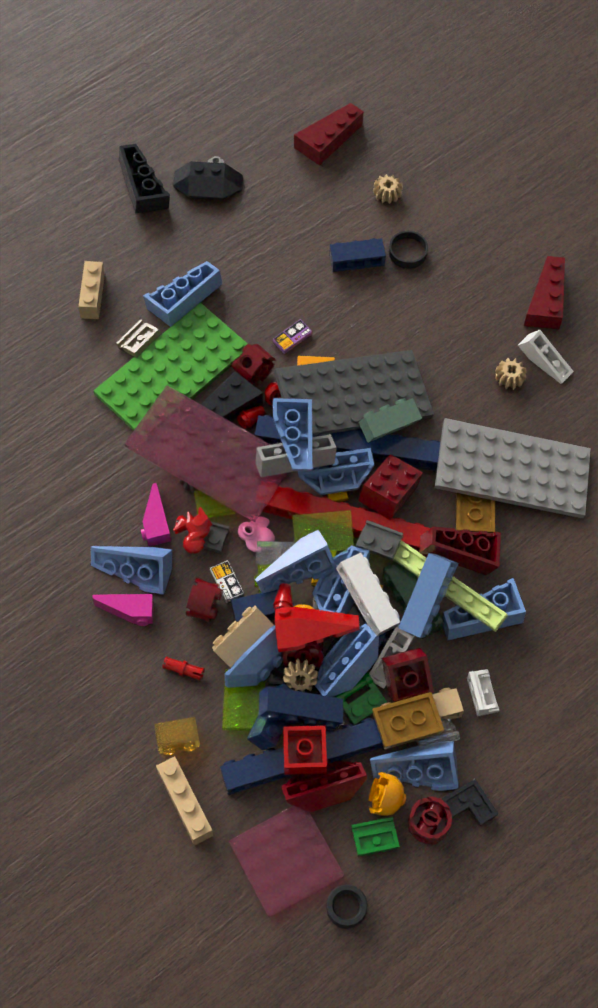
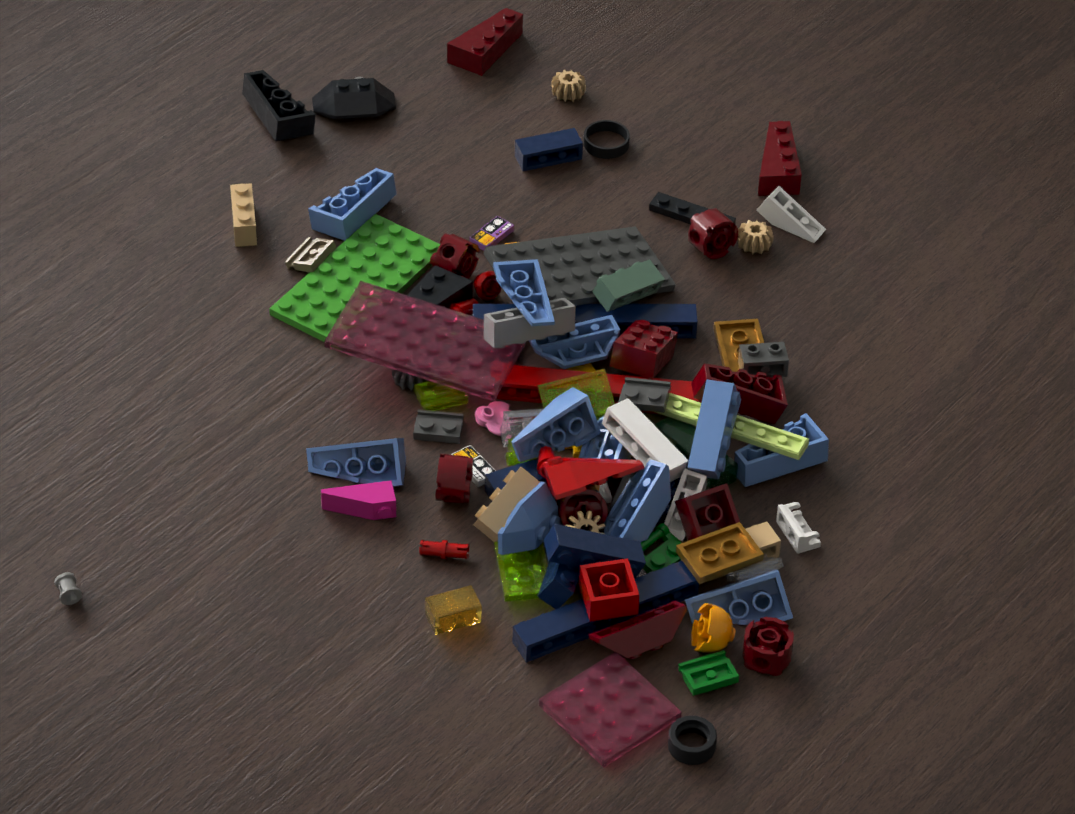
camera: 10 degrees left, 20 degrees down
(154, 520) = (376, 418): dark pink slope -> none
(184, 800) = (478, 667): tan brick -> none
(198, 529) = (427, 414): red animal -> none
(464, 339) = (677, 208): none -> black plate
(473, 798) = (815, 625): black plate -> none
(475, 368) = (712, 233): none -> dark red brick
(488, 513) = (765, 358): none -> dark grey brick
(513, 468) = (804, 319): light grey plate -> none

